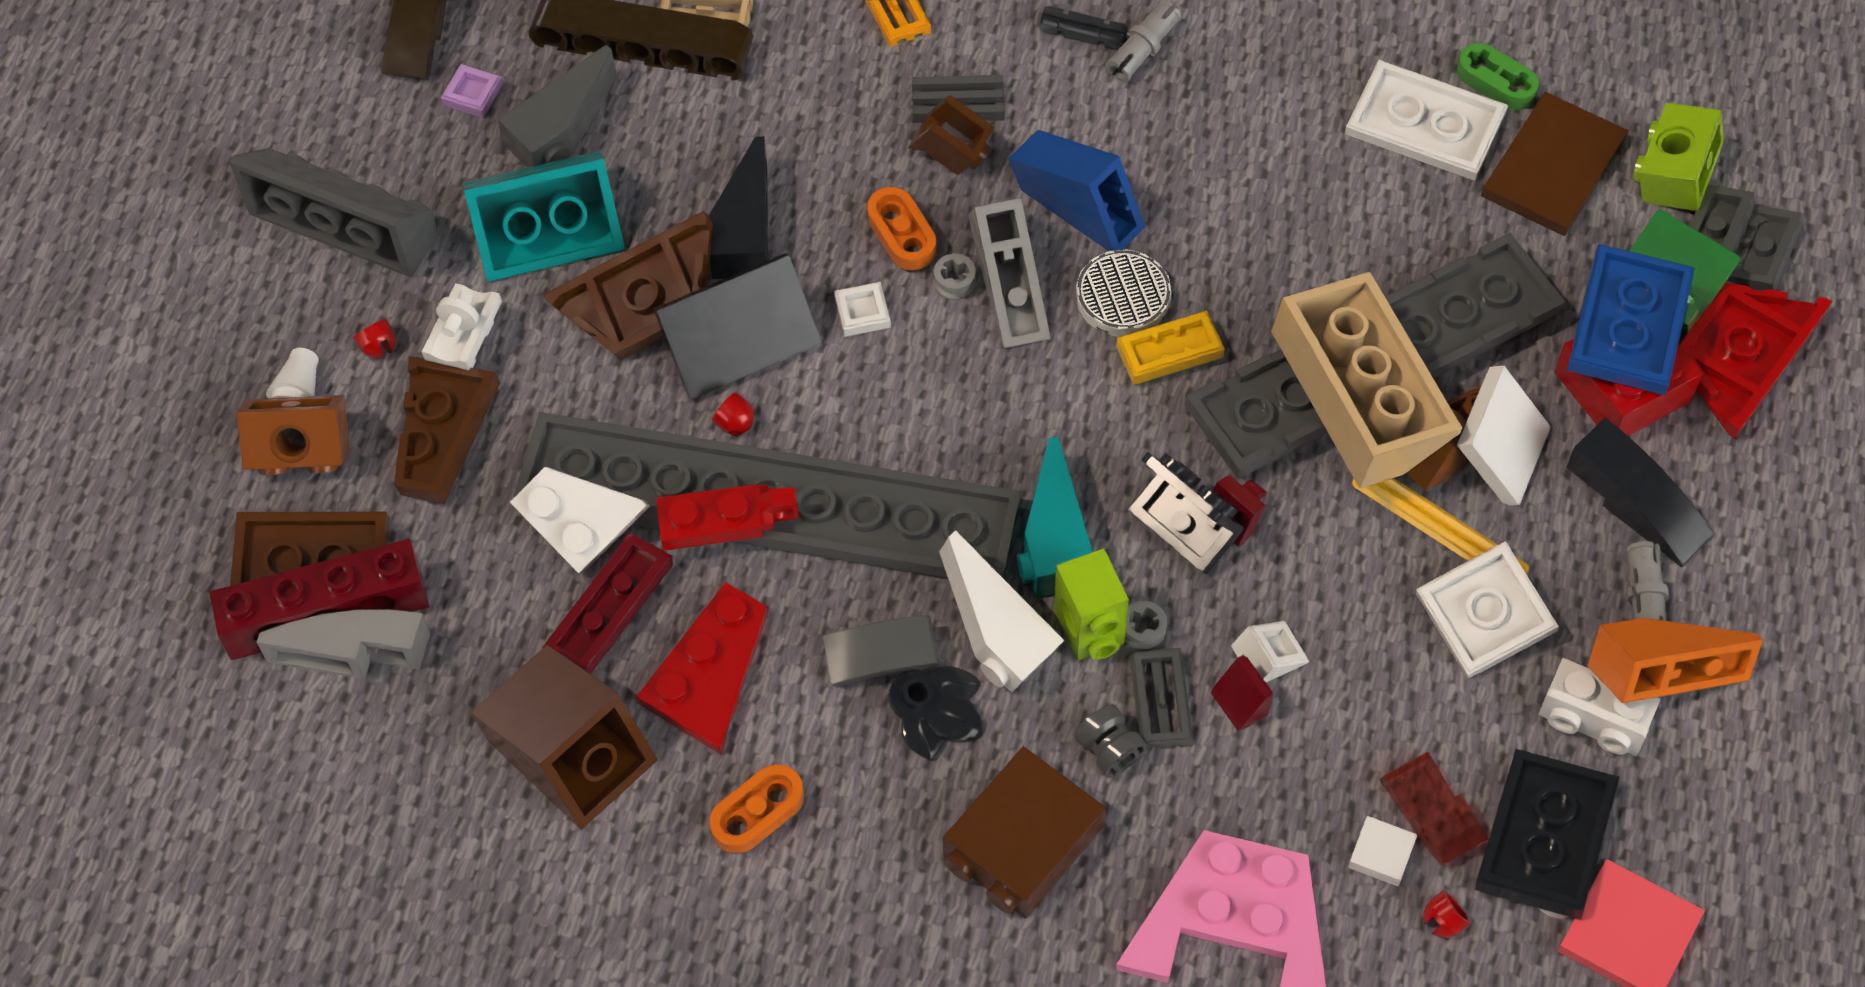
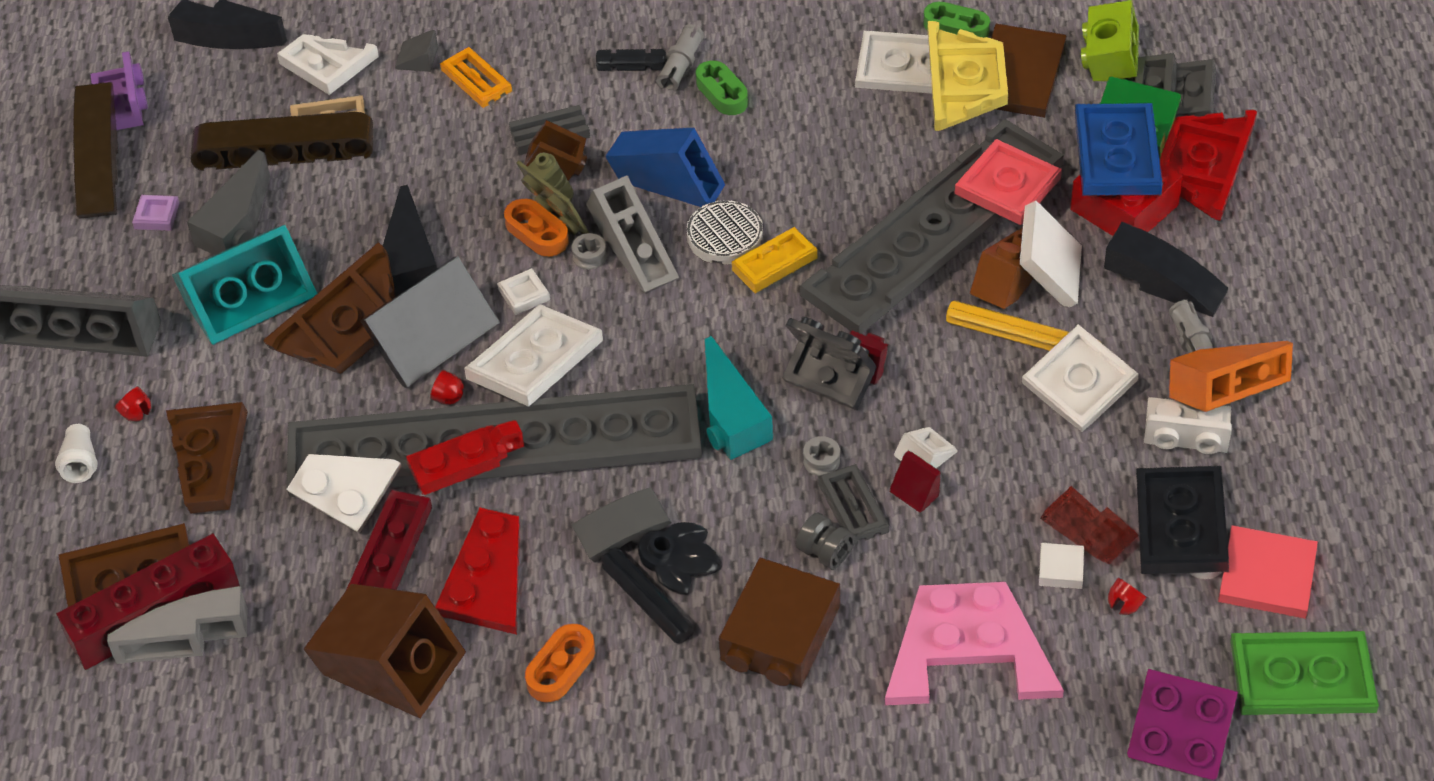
camera: 15 degrees left, 10 degrees down
(317, 417) = (108, 468): dark orange brick -> none
(461, 327) = (204, 376): white hips -> none
(847, 399) = (533, 355): none -> white tile
(883, 750) = (647, 596): none -> black axle
(931, 188) = (552, 190): none -> olive hinge
(1000, 624) = (709, 477): white slope -> none
(1091, 605) = (778, 445): lime brick -> none
(1172, 97) = (727, 83): none -> bright green beam
(1364, 378) = (933, 234): tan slope -> none
(1480, 158) = (965, 75): none -> light yellow wing
(1483, 322) = (1007, 181): none -> coral tile

